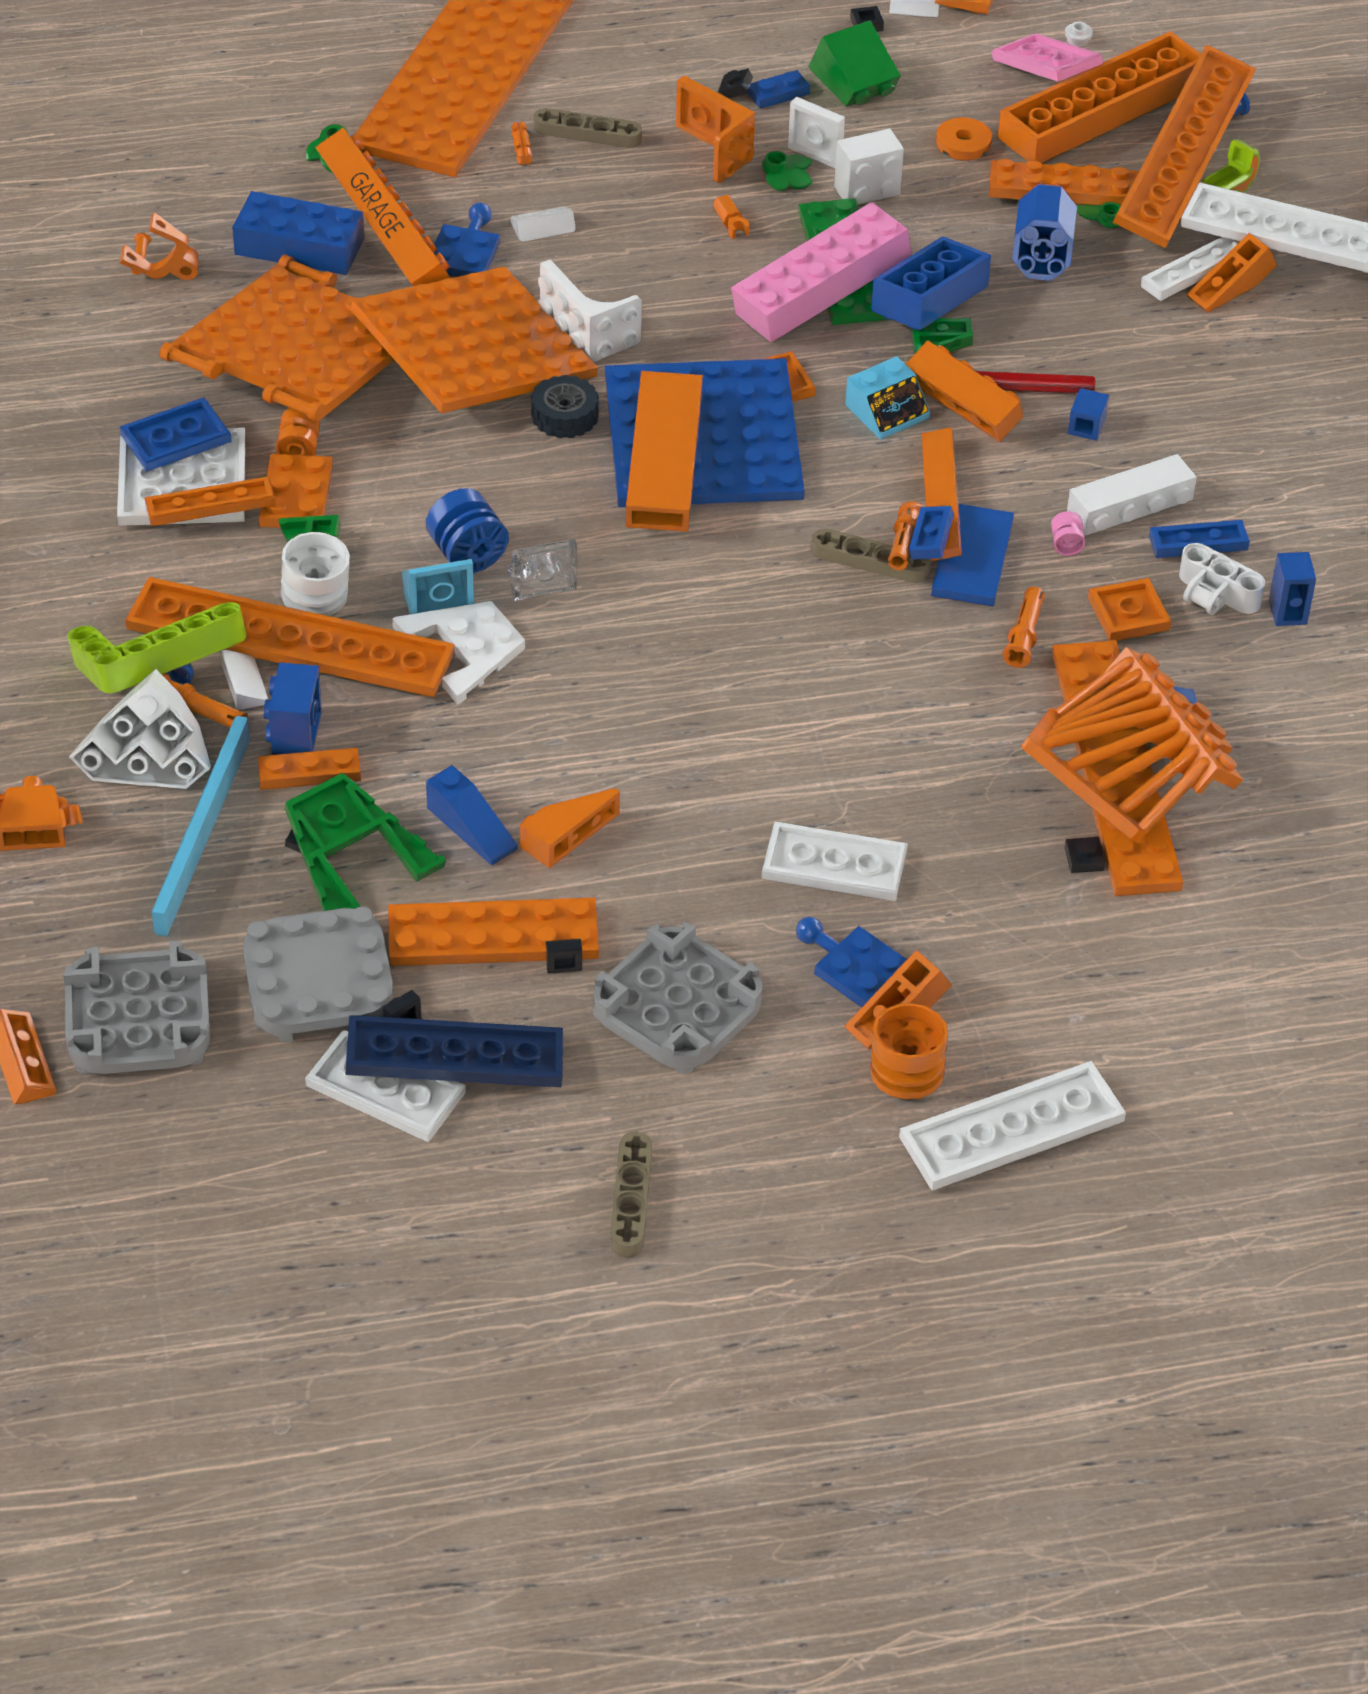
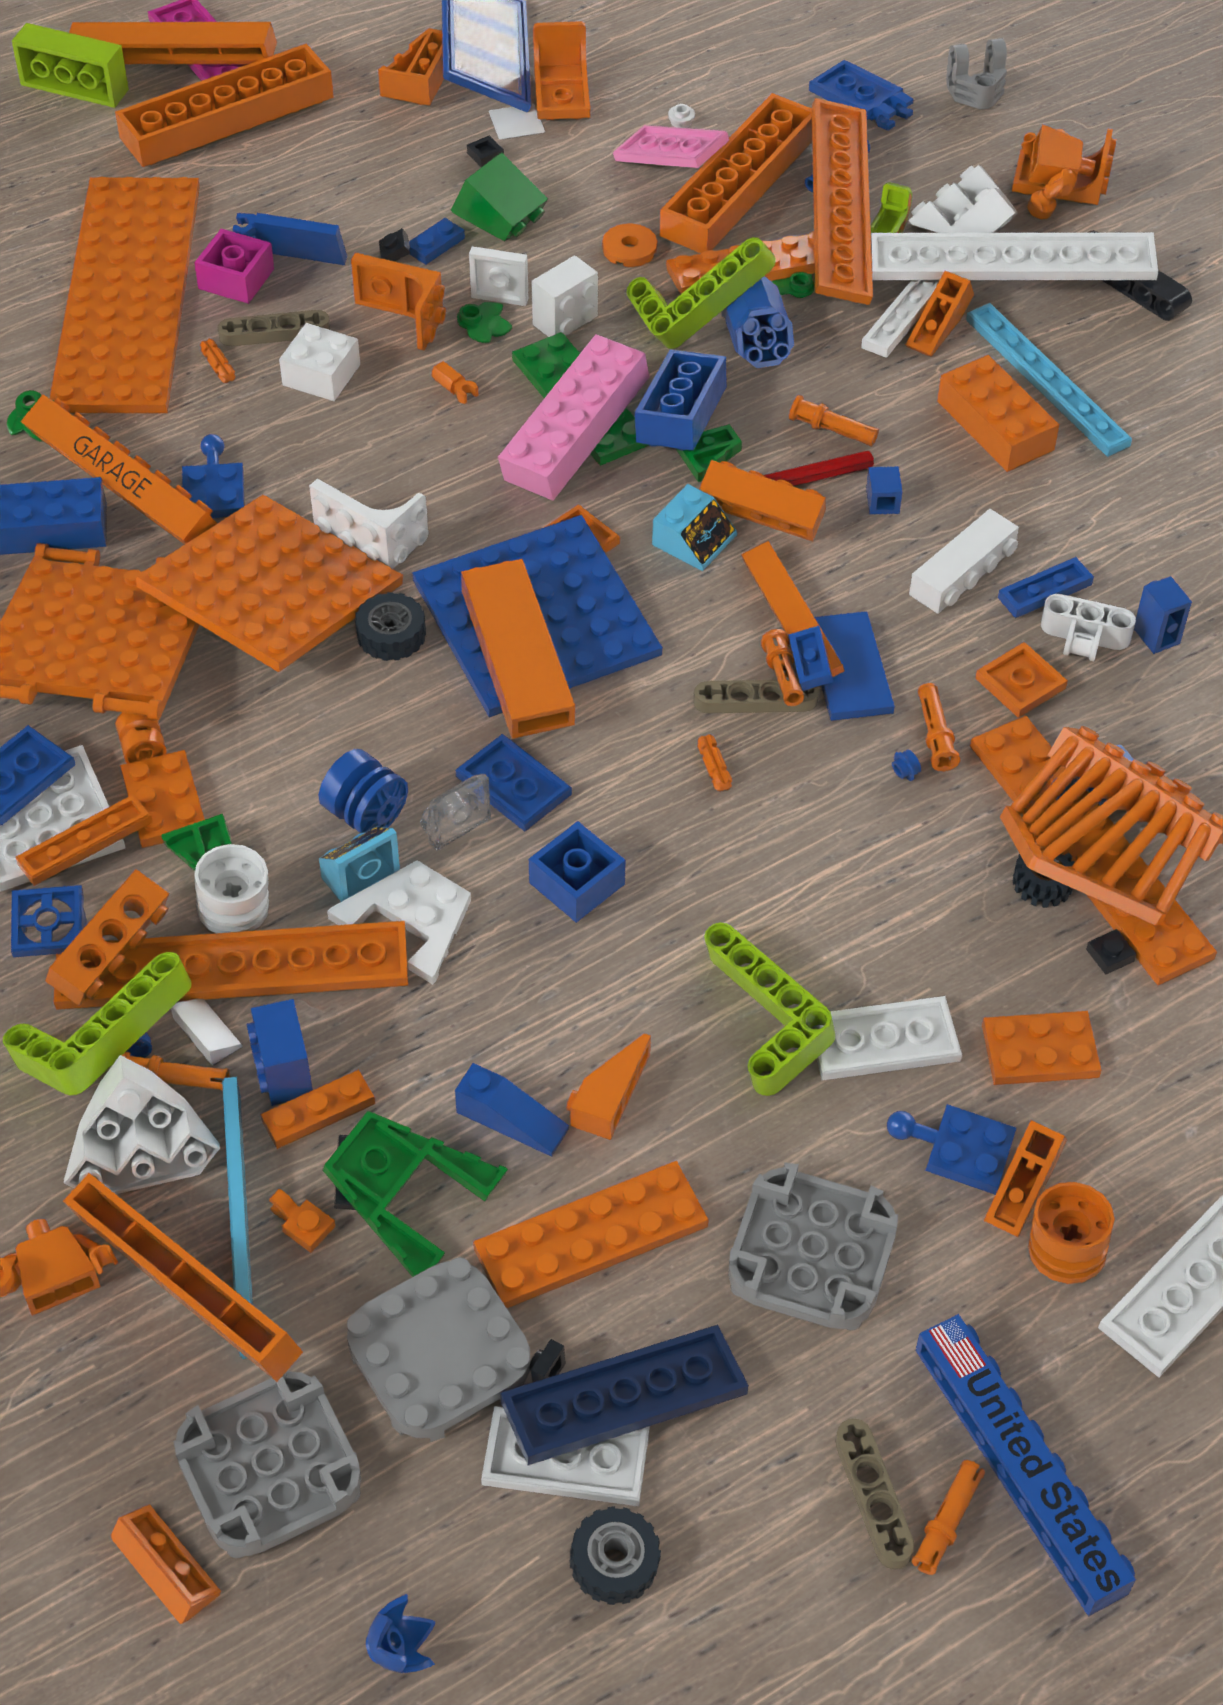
camera: 20 degrees left, 5 degrees up
(125, 549) = (24, 899): none -> blue piece
(128, 847) = (184, 1277): none -> orange brick
(175, 1163) = (396, 1638): none -> blue piece
(226, 551) = (135, 894): none -> orange brick
(252, 849) = (303, 1224): none -> orange plate
(382, 1183) = (609, 1579): none -> black wheel
(543, 223) = (277, 438): white slope -> none
(563, 956) = (678, 1240): black tile -> none
(574, 63) = (234, 265): none -> dark pink brick
(613, 166) = (320, 362): none -> white brick
(613, 565) = (517, 782): none -> blue tile
(625, 647) = (577, 871): none -> blue brick
(636, 50) = (295, 237): none -> blue tile
(672, 1237) = (941, 1531): none -> orange pin
(764, 824) = (775, 999): none -> lime beam
(772, 1212) = (1025, 1465): none -> blue brick
(801, 599) = (714, 763): none -> orange axle
(968, 212) = (705, 298): none -> lime beam
(974, 910) = (1041, 1047): none -> orange plate
(978, 649) = (906, 765): none -> blue plate
(1046, 784) = (1041, 888): none -> black wheel
(1064, 336) = (821, 417): none -> orange pin
(1068, 533) = (929, 620): bright pink wheel -> none
(1238, 375) = (998, 413): none -> orange brick
(1273, 56) = (862, 89): none -> blue tile
(1312, 361) = (1049, 380): none -> medium azure tile
(1321, 185) = (966, 207): none -> white brick

